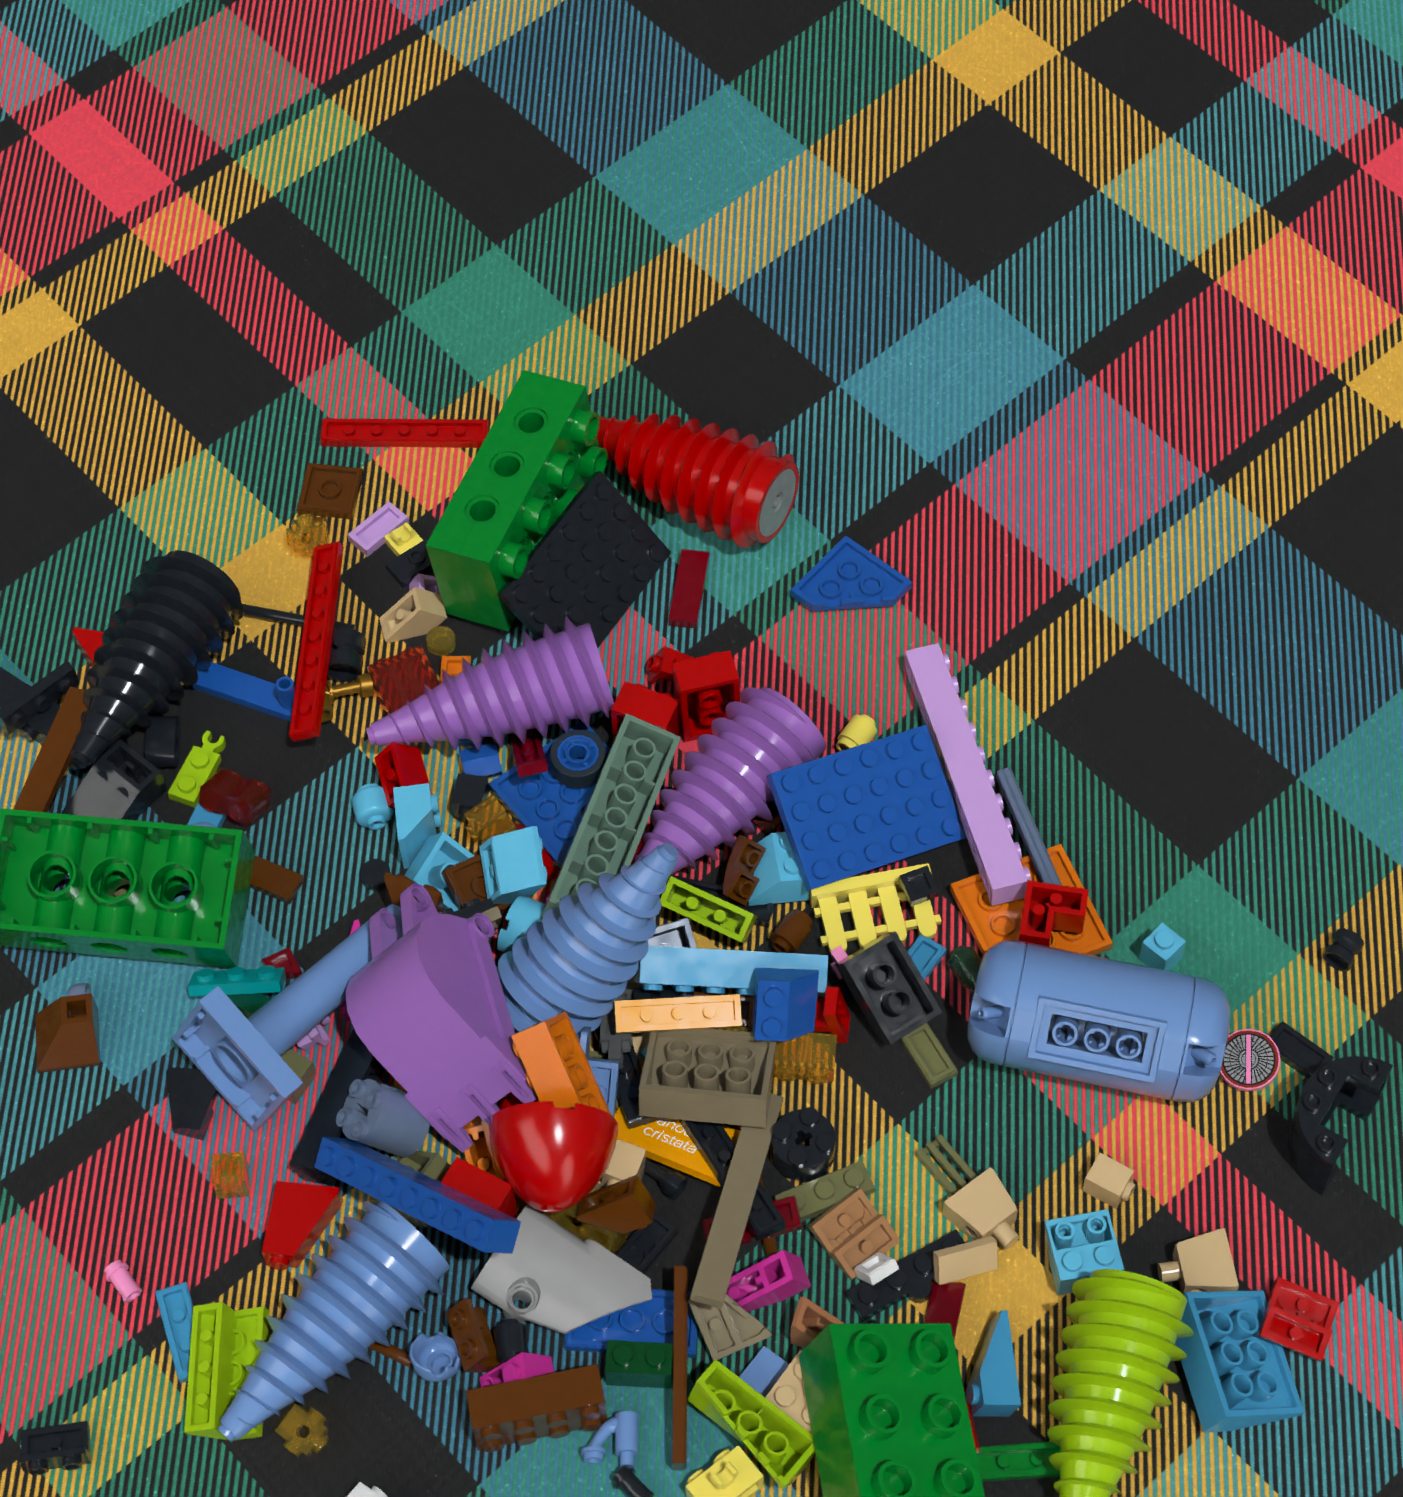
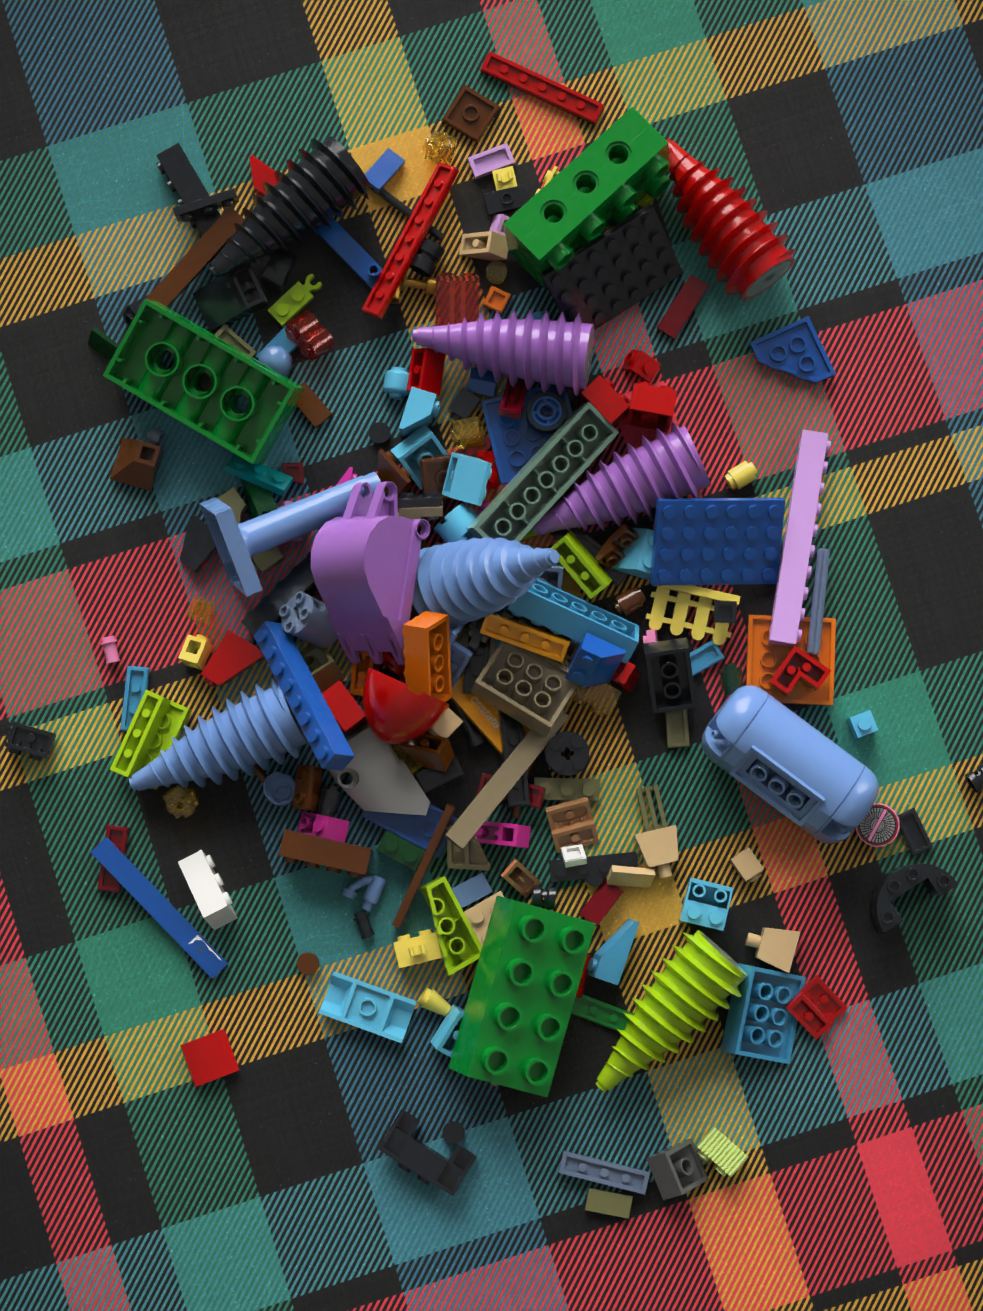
camera: 25 degrees right, 25 degrees up
(243, 1232) = (195, 651): none -> light yellow brick
(251, 583) = (384, 169): none -> blue tile

